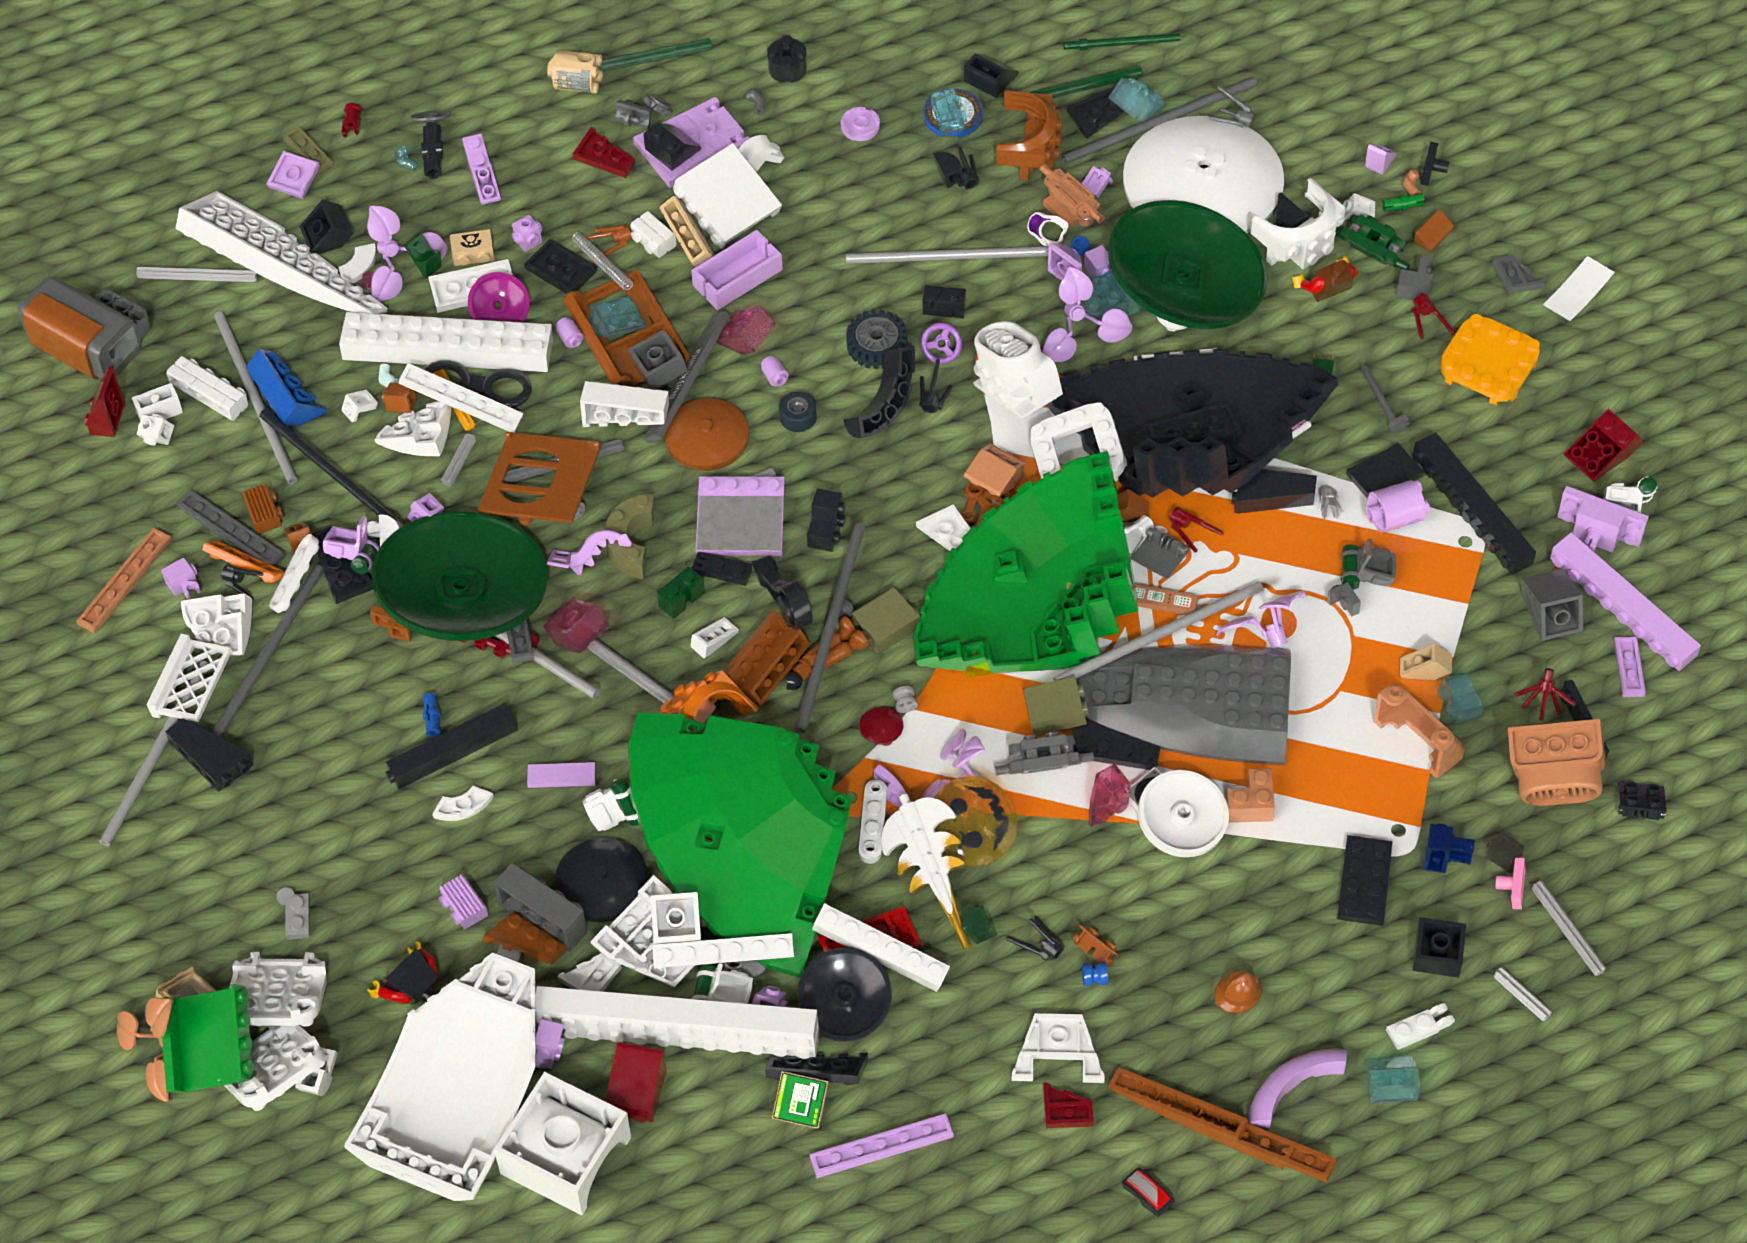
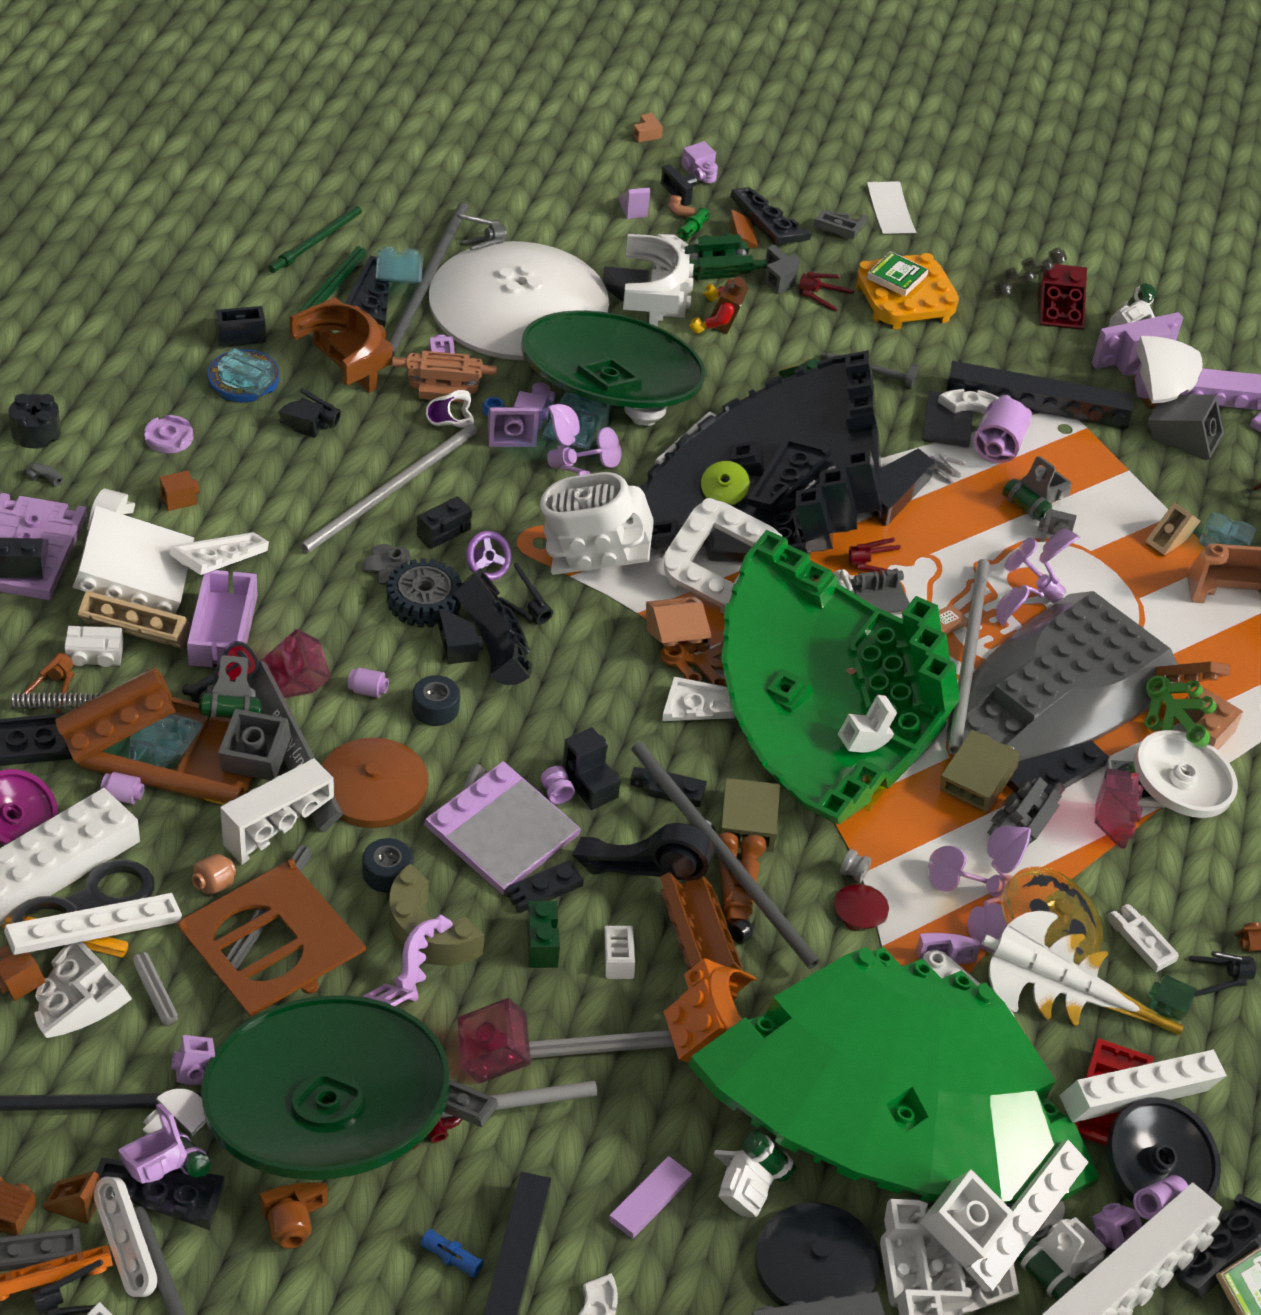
camera: 55 degrees left, 10 degrees down
(374, 633) = (289, 1223): none -> dark orange head
(556, 419) = (213, 874): none -> nougat head
(600, 284) = (116, 715): none -> dark orange brick
(651, 481) = (384, 861): none -> black wheel
(678, 321) = (226, 696): none -> piece
(707, 304) = (233, 669): none -> black piece
(777, 223) = (218, 552): none -> white wing
(793, 999) = (1157, 1195): none -> lavender pin
(799, 517) = (557, 784): none -> lavender wheel
(816, 166) = (178, 490): none -> dark orange brick
(857, 383) = (458, 638): none -> black slope
(870, 572) = (691, 787): none -> black hinge
(883, 301) = (385, 560): none -> dark grey plate
(1016, 627) = (871, 730): none -> white brick
(1018, 883) = (1143, 937): none -> white hinge
(1158, 409) = (729, 492): none -> lime dish
(1244, 751) = (1176, 708): none -> bright green plant
(1272, 758) = (1194, 671): none -> dark orange wing
(1412, 470) = (964, 401): none -> white tile
(1466, 235) = (769, 218): none -> black wing
(1473, 106) = (648, 128): none -> nougat piece
(1474, 156) = (700, 161): none -> lavender brick
(1486, 341) = (897, 273): none -> tile
(1580, 551) = (1167, 367): none -> white brick
(1593, 405) = (1030, 269): none -> clear smoke plant

